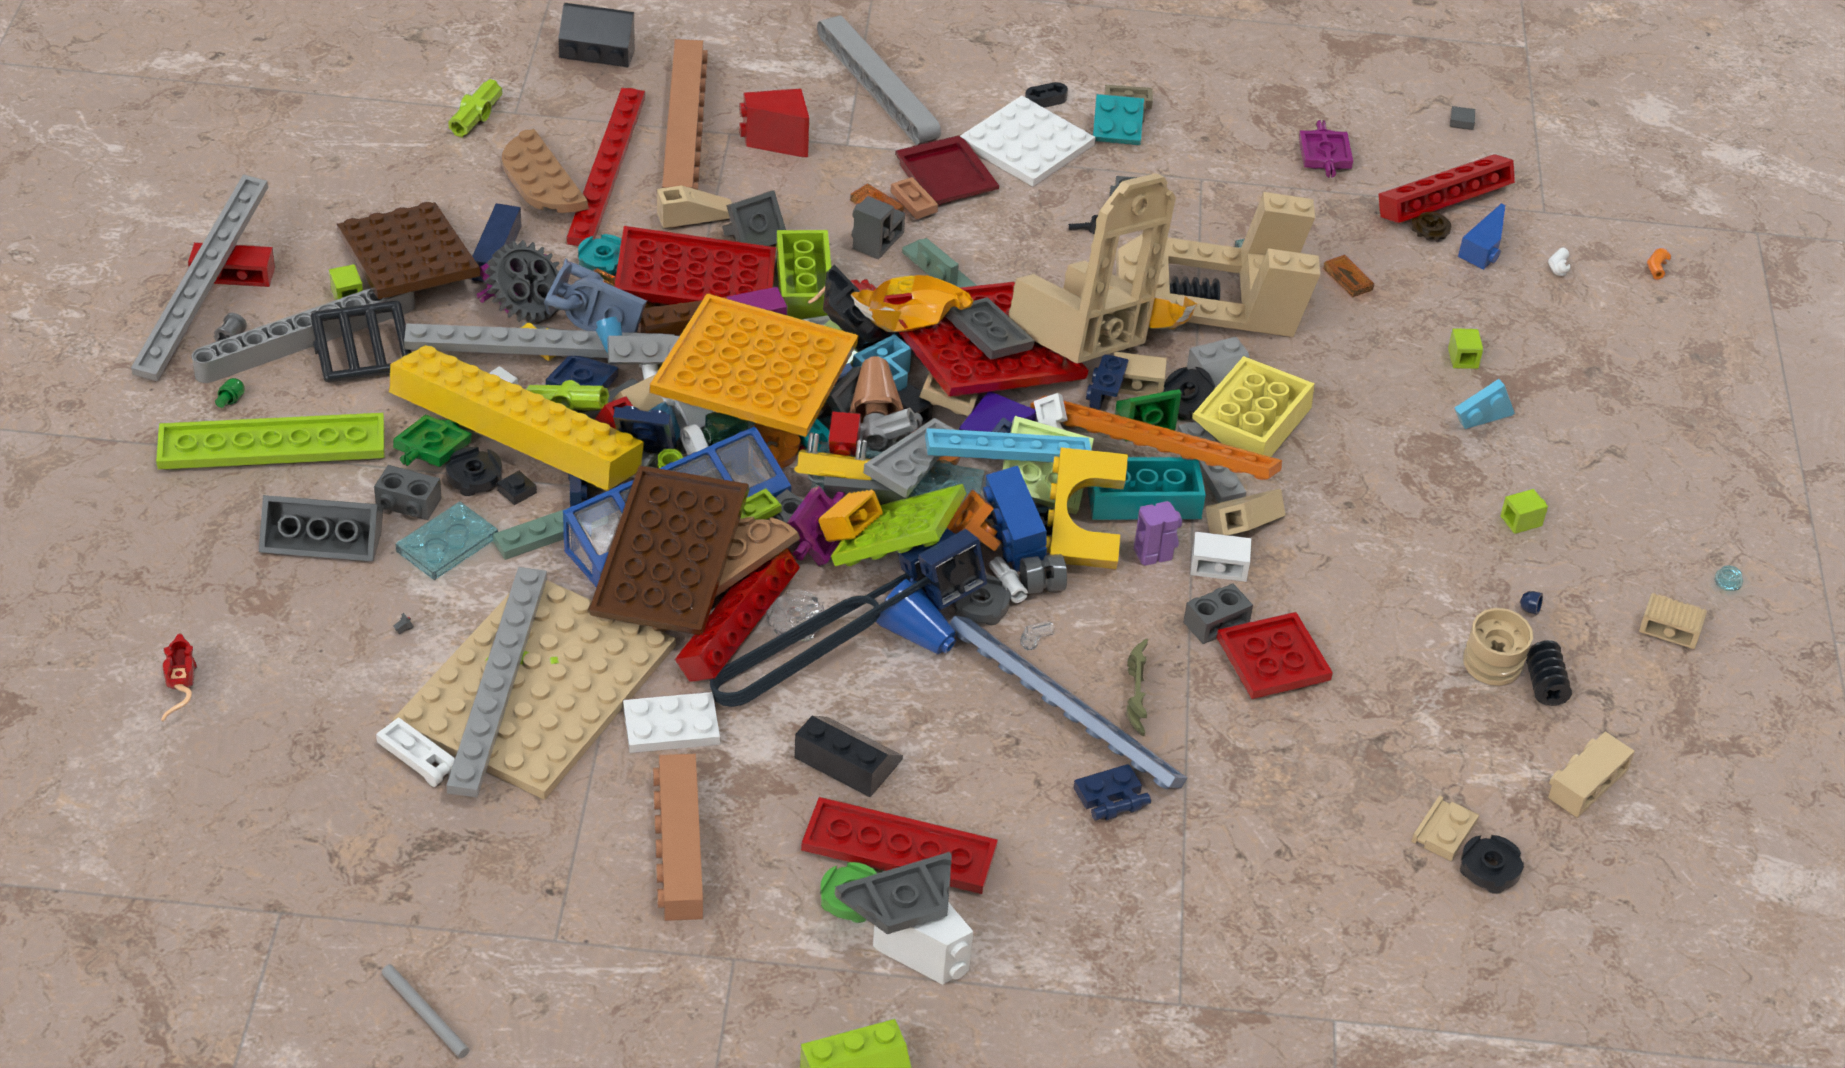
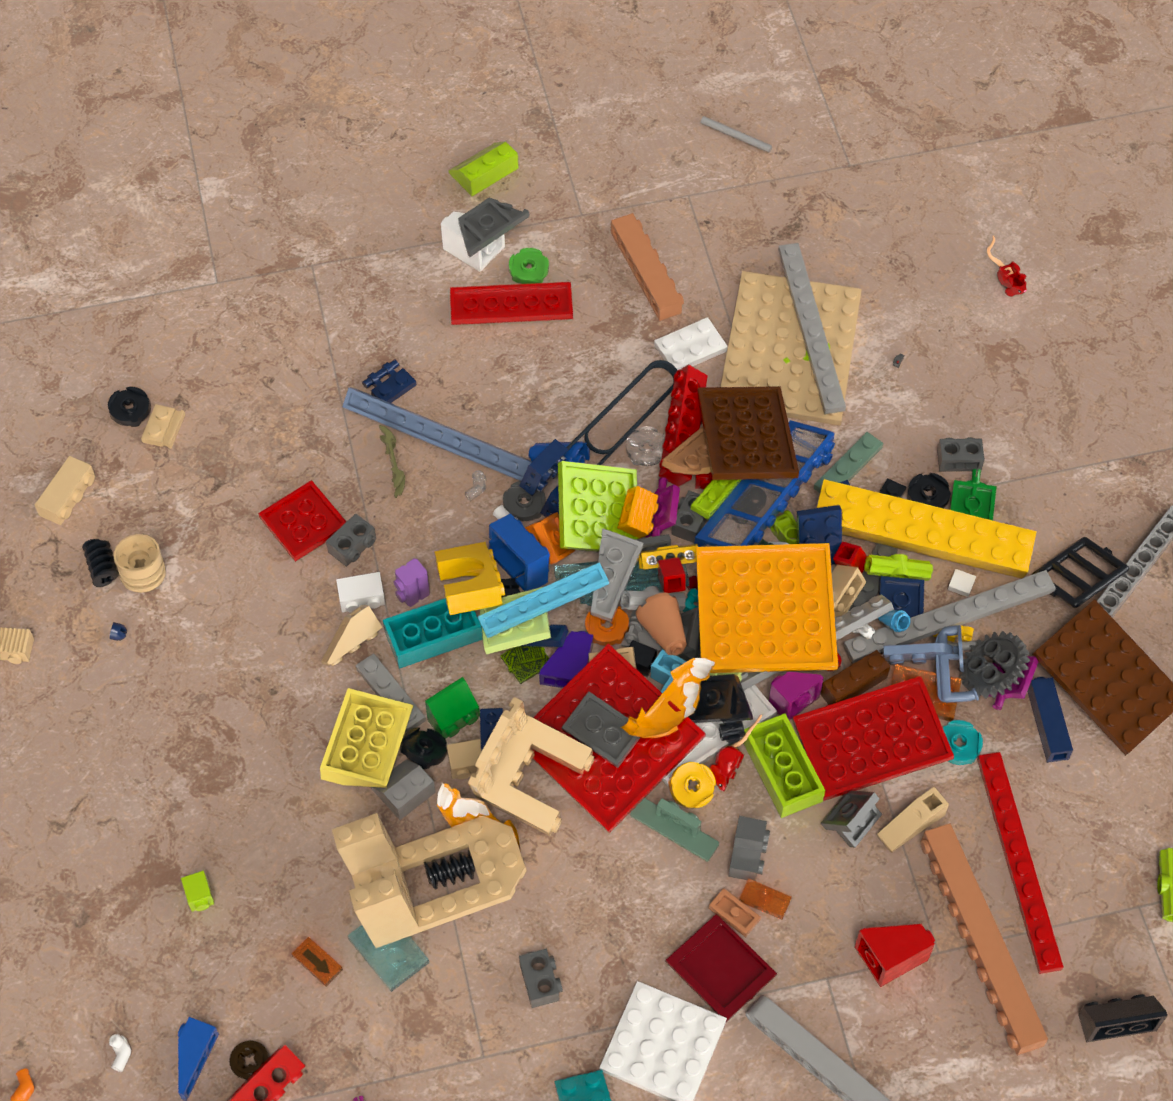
camera: 165 degrees right, 15 degrees up
(230, 392) = (1143, 503): green cylinder -> none
(270, 440) = (1082, 470): lime plate -> none
(320, 528) = (1000, 409): dark grey slope -> none
(345, 281) = (1136, 628): lime brick -> none
(416, 751) = (833, 273): white plate -> none
(446, 540) = (912, 433): clear light blue plate -> none
(540, 175) = (1065, 817): medium nougat plate -> none
(844, 754) = (568, 353): black slope -> none
(1033, 574) = (479, 529): dark grey wheel -> none
(1051, 410) = (525, 672): white plate -> none
(1091, 226) = (570, 940): black hand -> none
(1168, 441) = (435, 663): orange plate -> none
(1485, 406) = (172, 817): medium azure wing -> none
(1524, 511) = (130, 717): lime brick -> none

